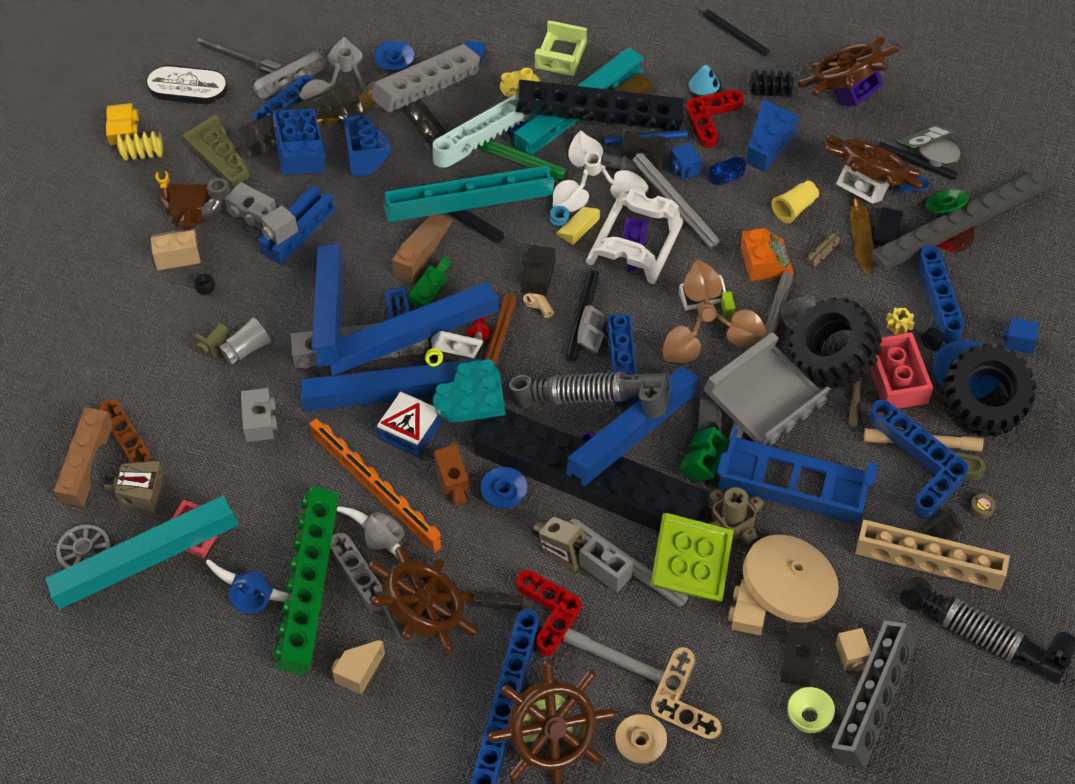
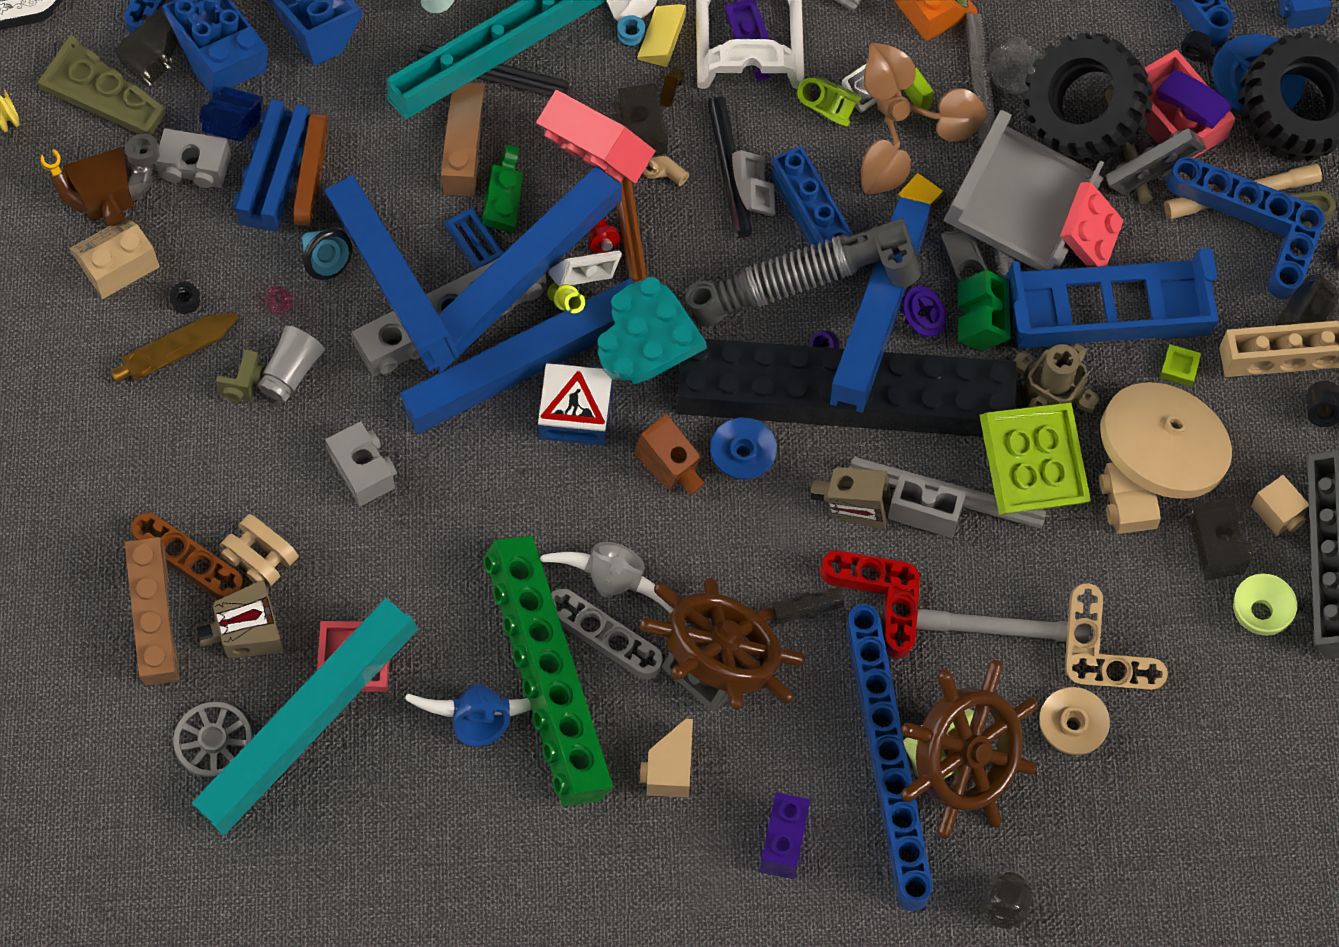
camera: 25 degrees left, 10 degrees up
(157, 440) = (239, 551): none -> tan brick
(183, 310) = (174, 346): none -> pearl gold piece
(255, 303) = (282, 306): none -> clear pink hinge
(277, 224) = (256, 176): light grey brick -> none
(285, 186) = (231, 113): none -> clear blue brick
(300, 285) = (326, 245): none -> medium azure hat
(318, 234) = (311, 169): none -> dark orange beam
(381, 490) = (581, 509): orange plate -> none
(408, 740) = (784, 835): none -> dark purple brick
(497, 267) = (594, 138): none -> coral brick
(567, 254) = (672, 80): none -> dark brown tile
(667, 295) = (834, 101): none -> lime piece
(668, 435) = (935, 317): none -> dark purple gear
(701, 369) = (921, 190): none -> yellow tile
(803, 425) = (1091, 226): none -> coral plate
(827, 536) = (1180, 365): none -> lime tile
(864, 397) = (1155, 161): none -> dark grey plate
(900, 321) = (1146, 35): light yellow gear -> none
(908, 365) = (1197, 99): none -> dark purple slope

